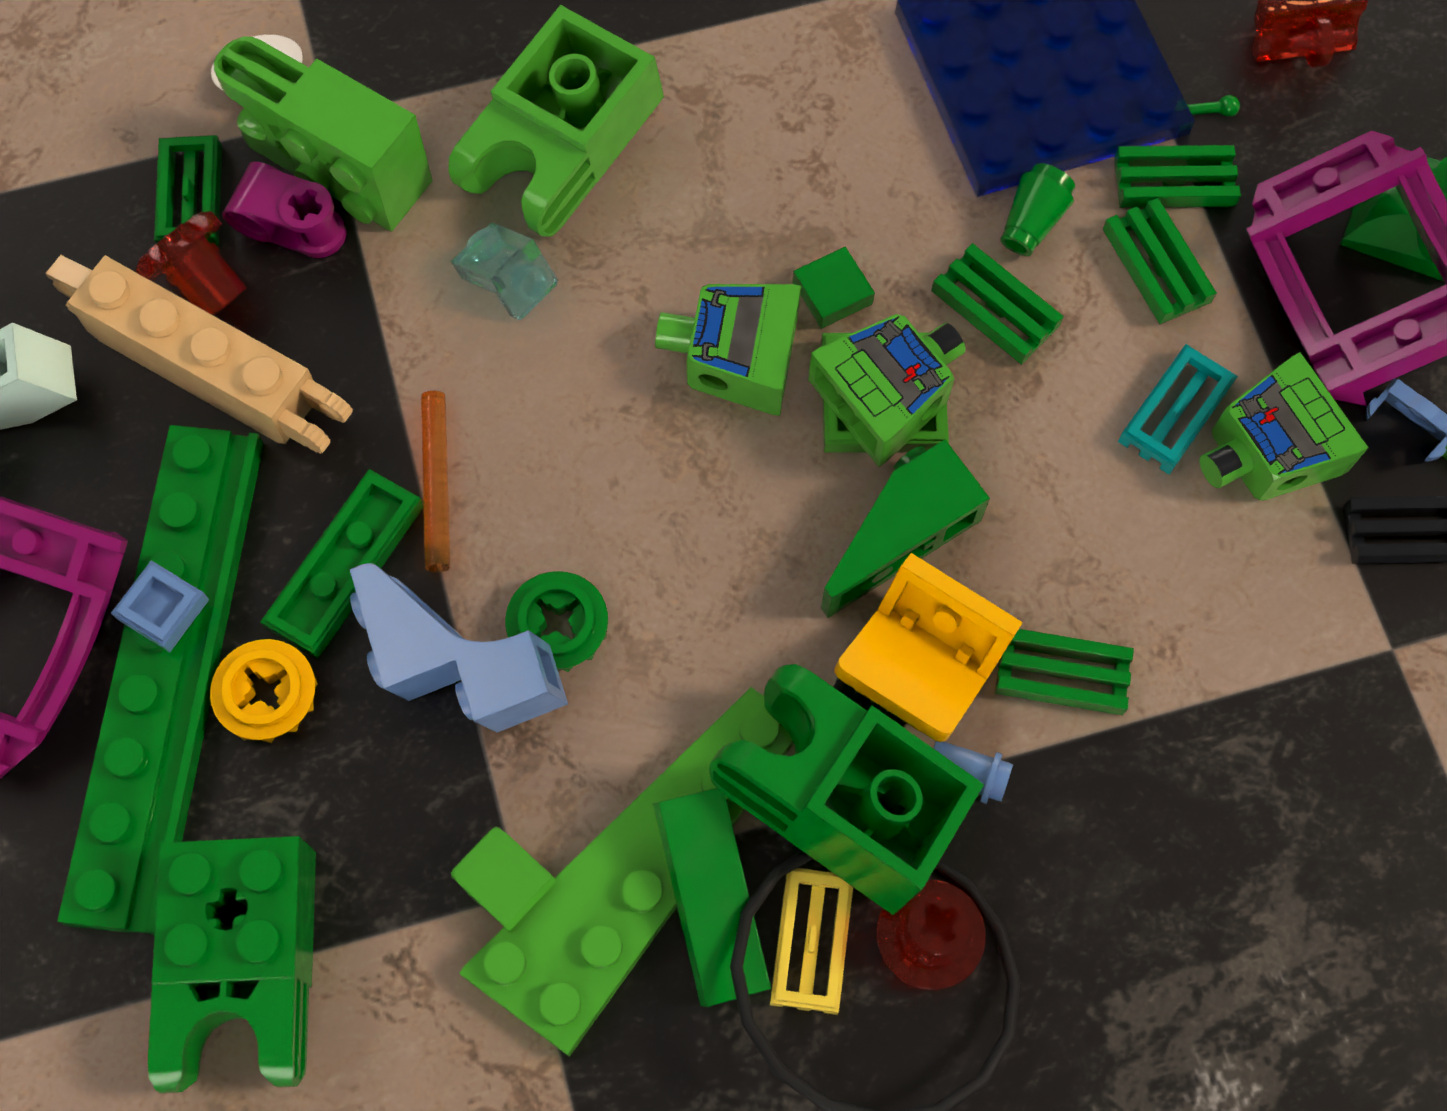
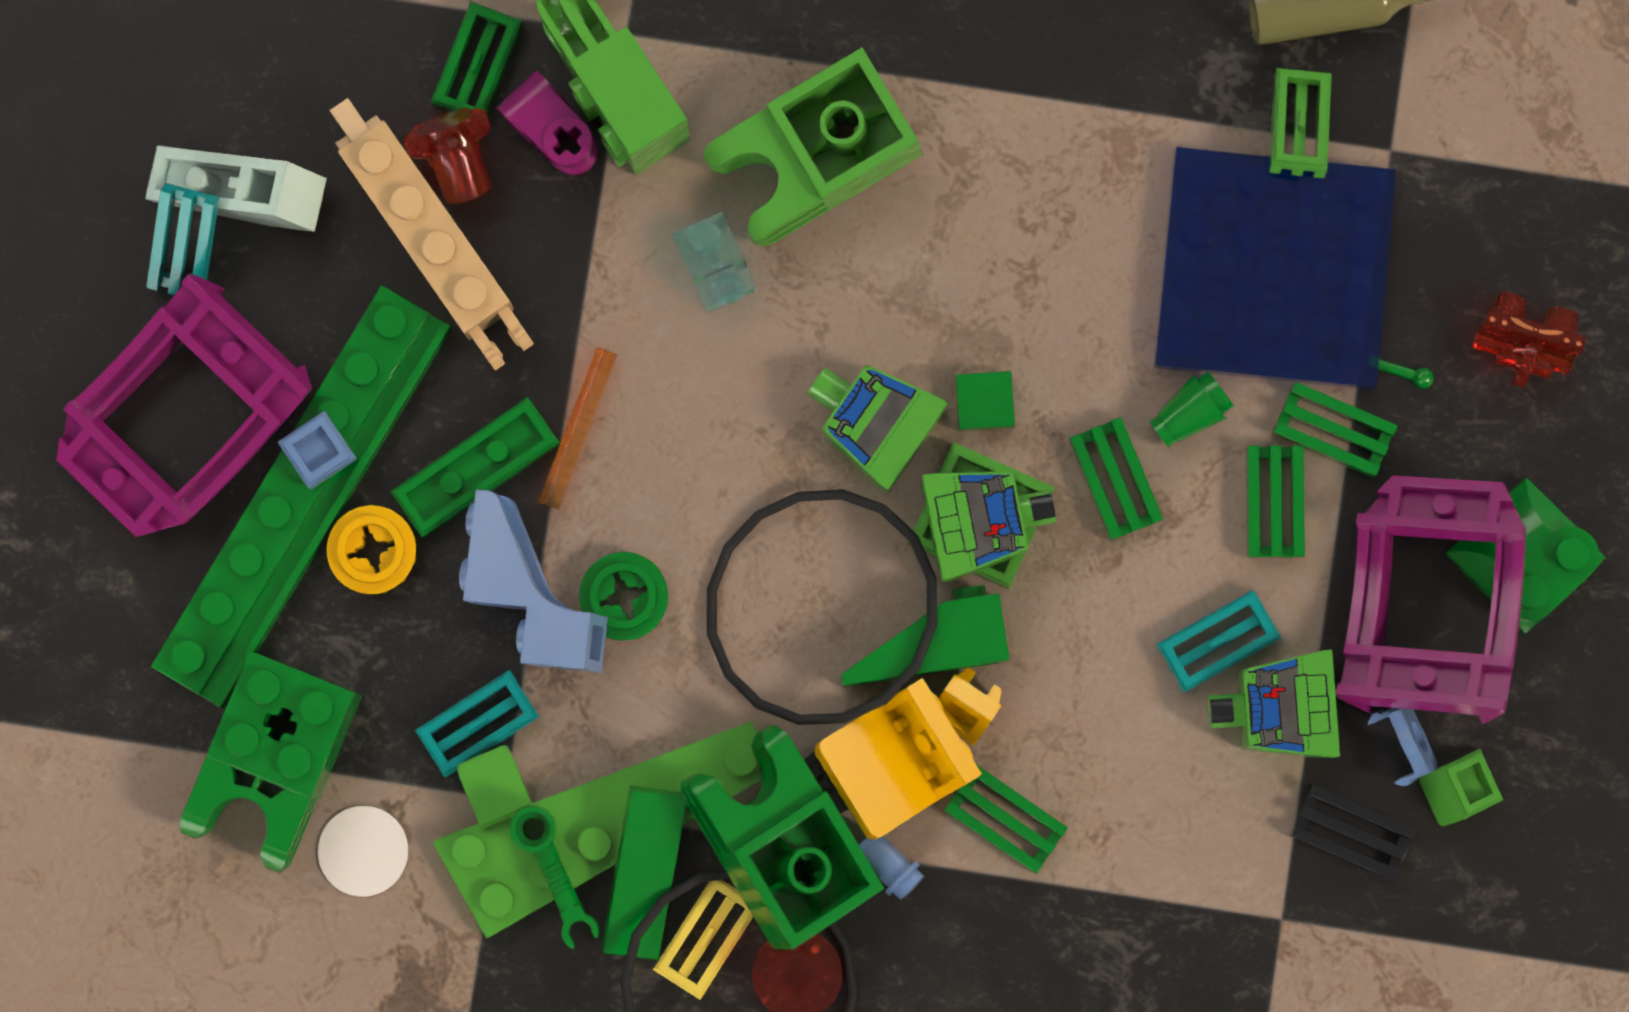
camera: 25 degrees right, 15 degrees up
(384, 1024) = (363, 851): none -> white sticker
(435, 808) = (518, 698): none -> teal tile
(600, 928) = (555, 874): none -> green brick
(831, 640) = (905, 676): none -> black piece
(972, 565) = (968, 707): none -> yellow tile

